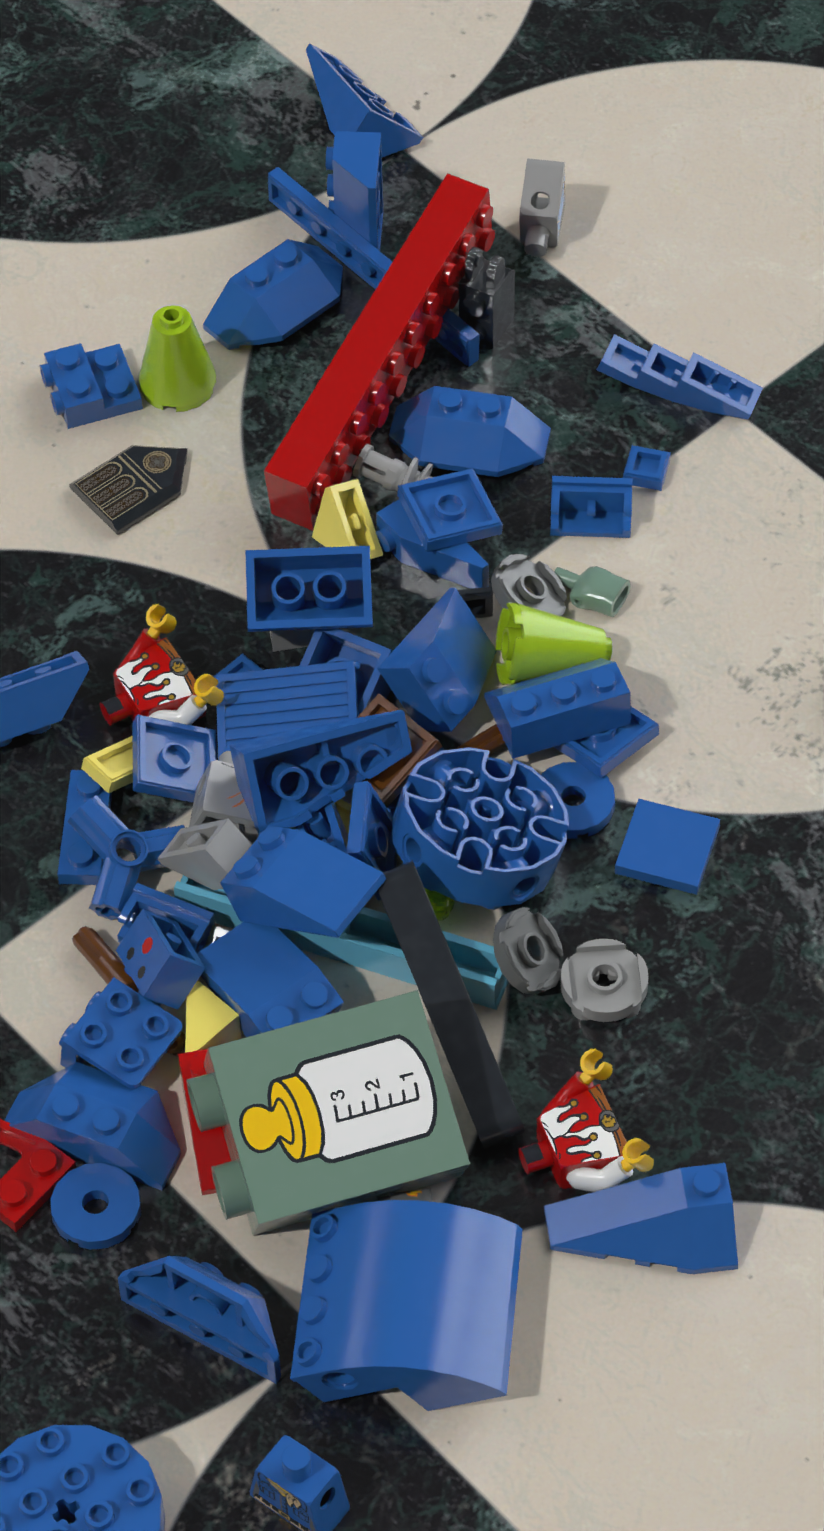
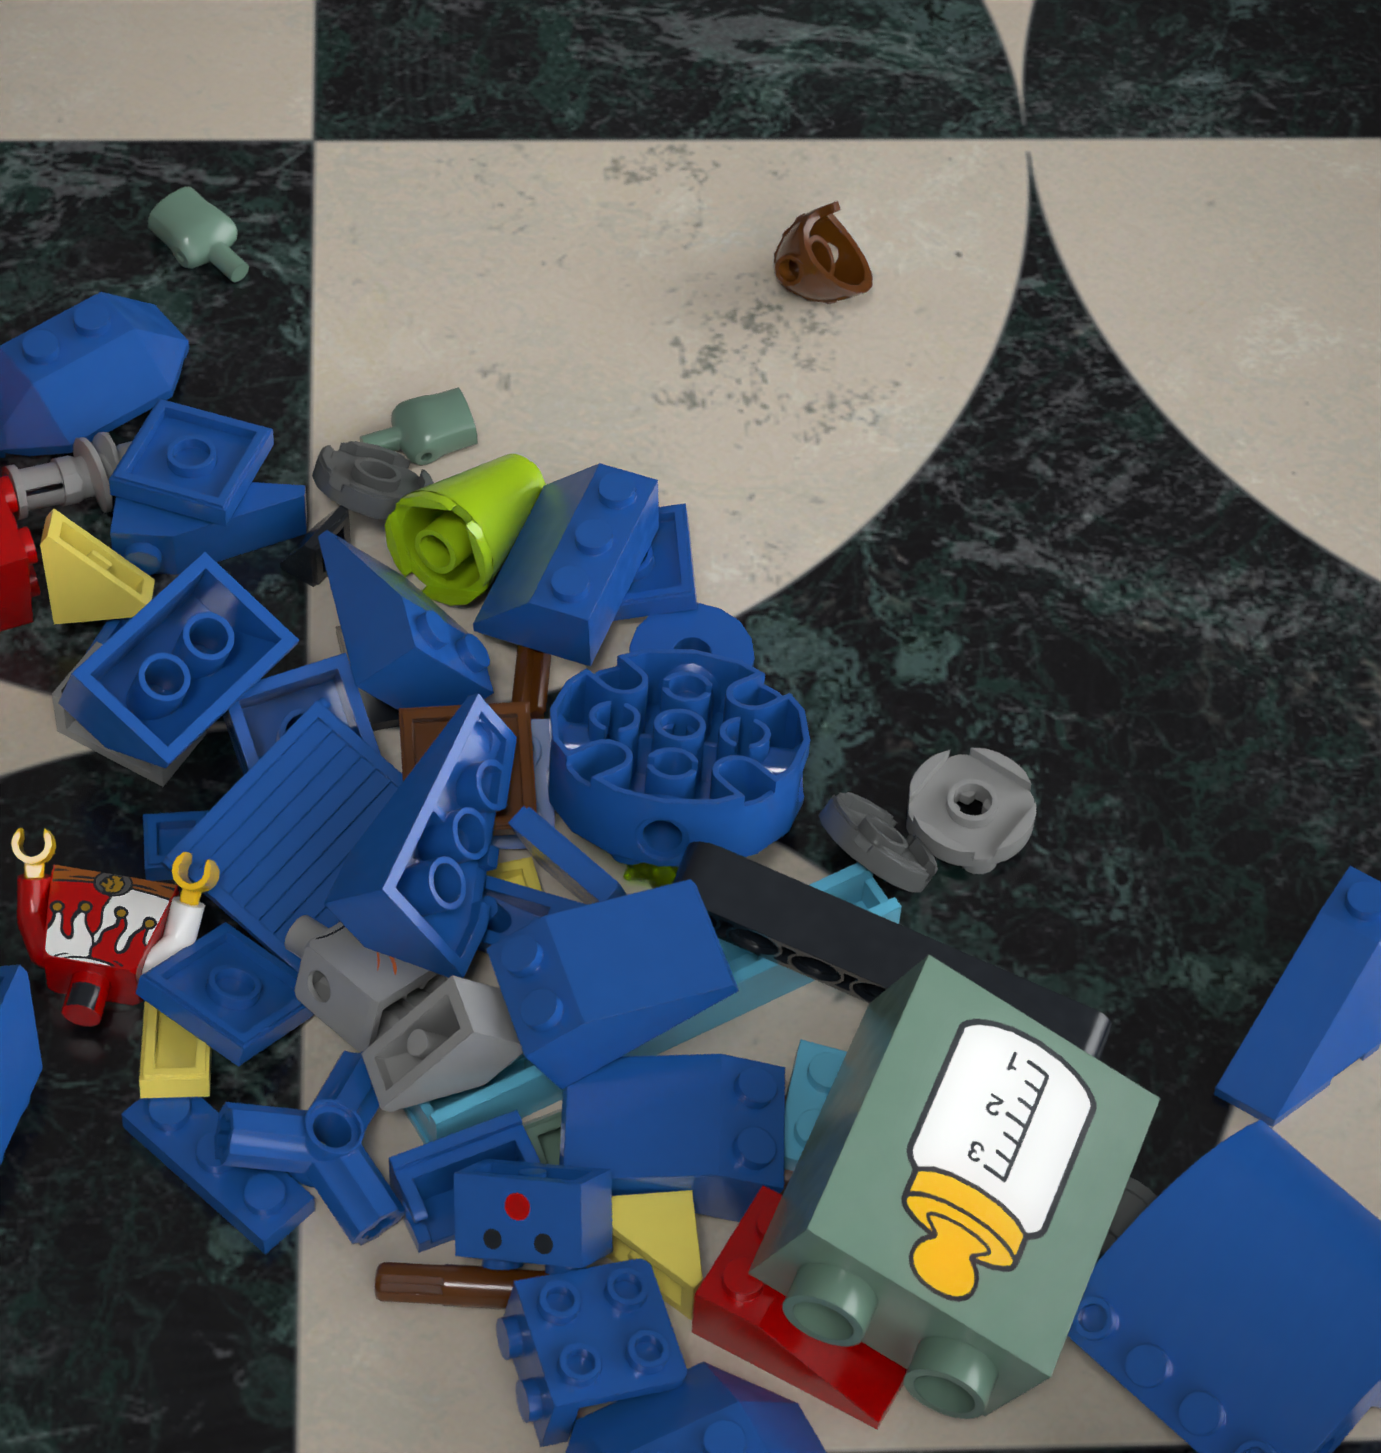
camera: 55 degrees left, 0 degrees up
(582, 1136) = (1175, 980): torso -> none
(591, 507) = (314, 347): blue hinge -> none
(612, 408) = (197, 233): none -> sand green piece
(647, 467) = (309, 266): blue tile -> none
(667, 846) = (842, 622): blue tile -> none
(671, 377) = (240, 145): blue slope -> none

